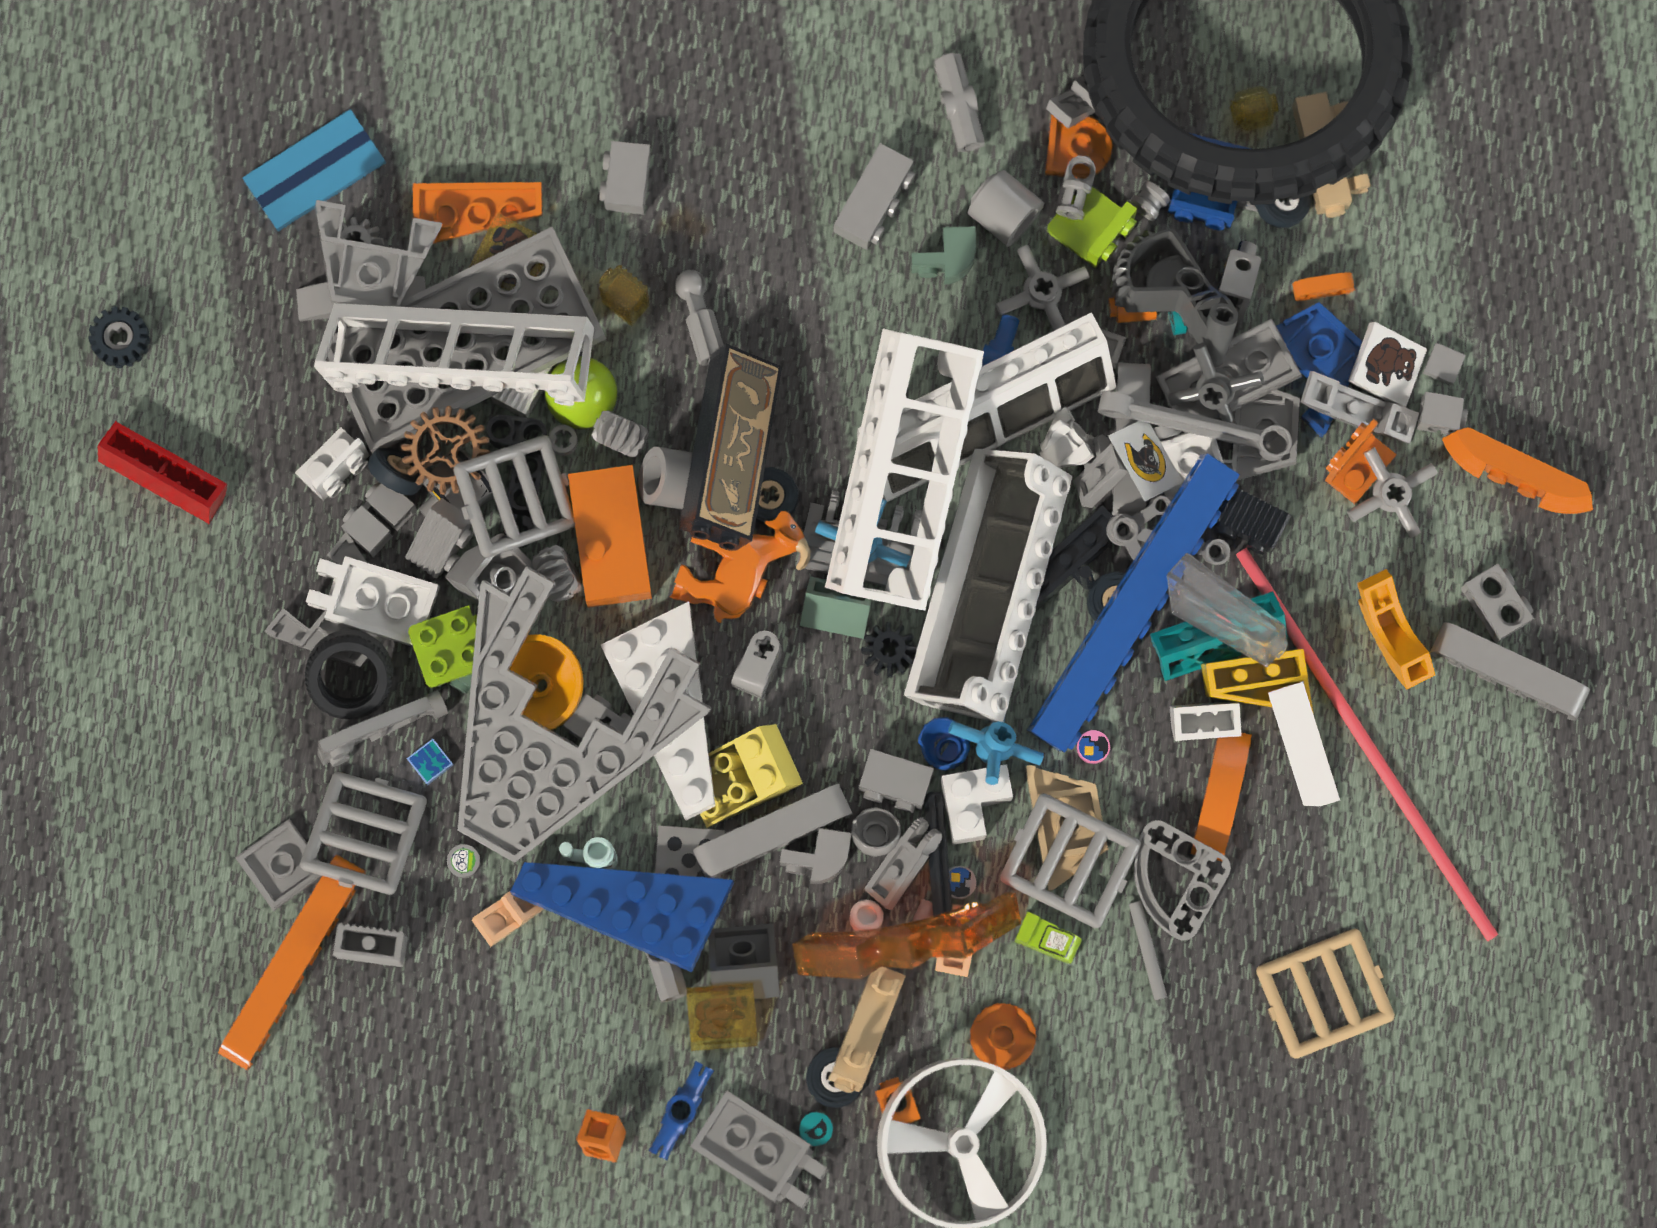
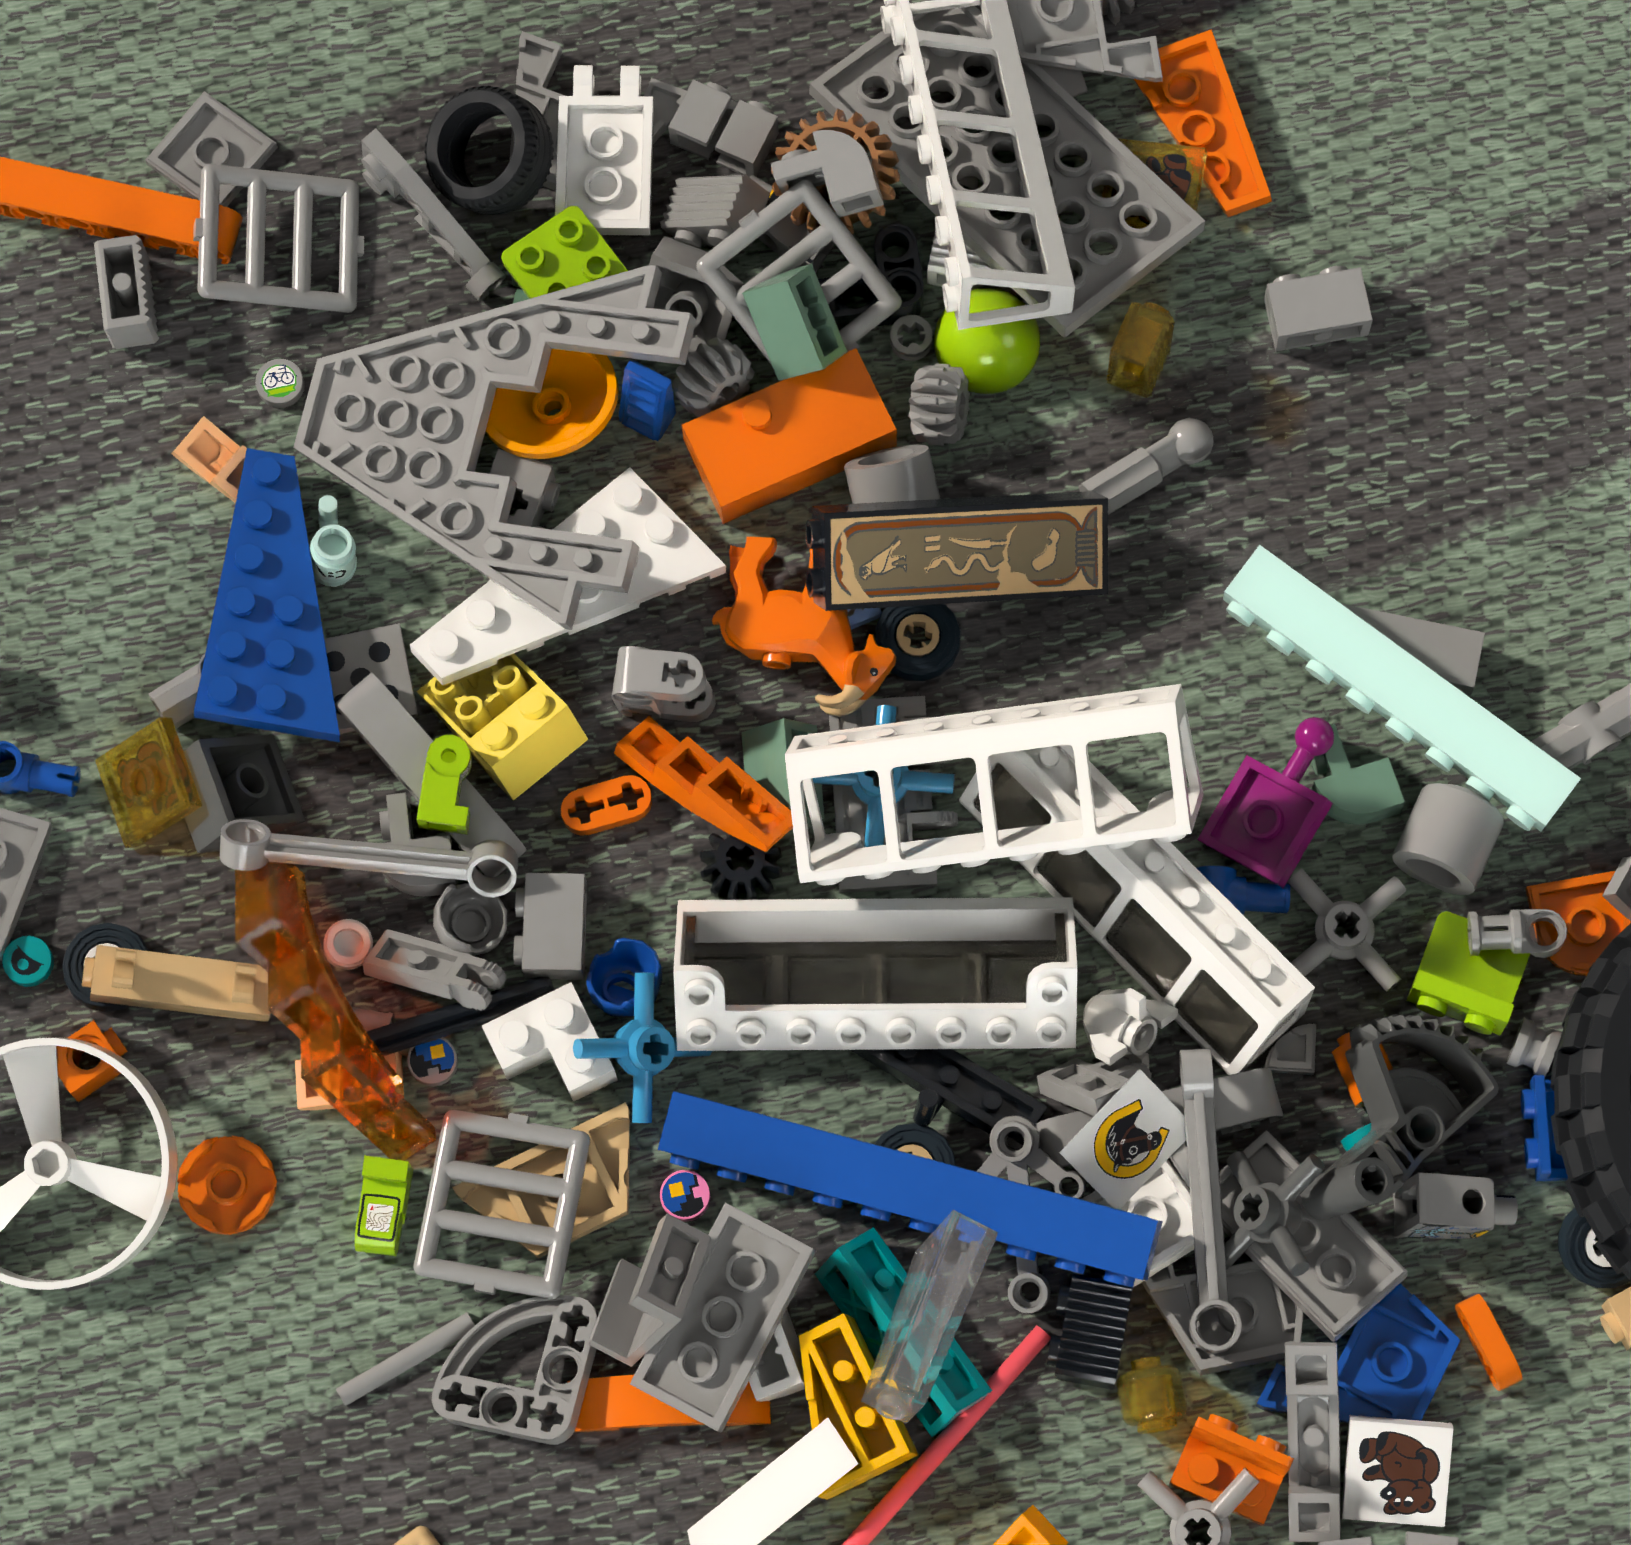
camera: 80 degrees right, 5 degrees down
(333, 464) = (779, 50): white bracket -> none
(390, 471) = (784, 113): black bush -> none
(430, 761) = (405, 299): tile -> none
(454, 438) = (837, 163): none -> light grey brick
(543, 505) = (795, 323): none -> sand green brick
(559, 620) = (646, 401): none -> blue slope
(788, 821) = (445, 769): none -> lime leg
(814, 725) = (603, 794): none -> orange beam
(821, 882) = (251, 845): none -> light grey piece
(838, 653) = (707, 788): none -> orange slope
(904, 205) = (1400, 689): none -> light aqua brick
(957, 311) = (1269, 815): none -> magenta plate
(1165, 780) = (650, 1300): none -> light grey panel
(1187, 739) = (728, 1318): none -> light grey plate
(1302, 496) = (1151, 1396): none -> clear yellow head

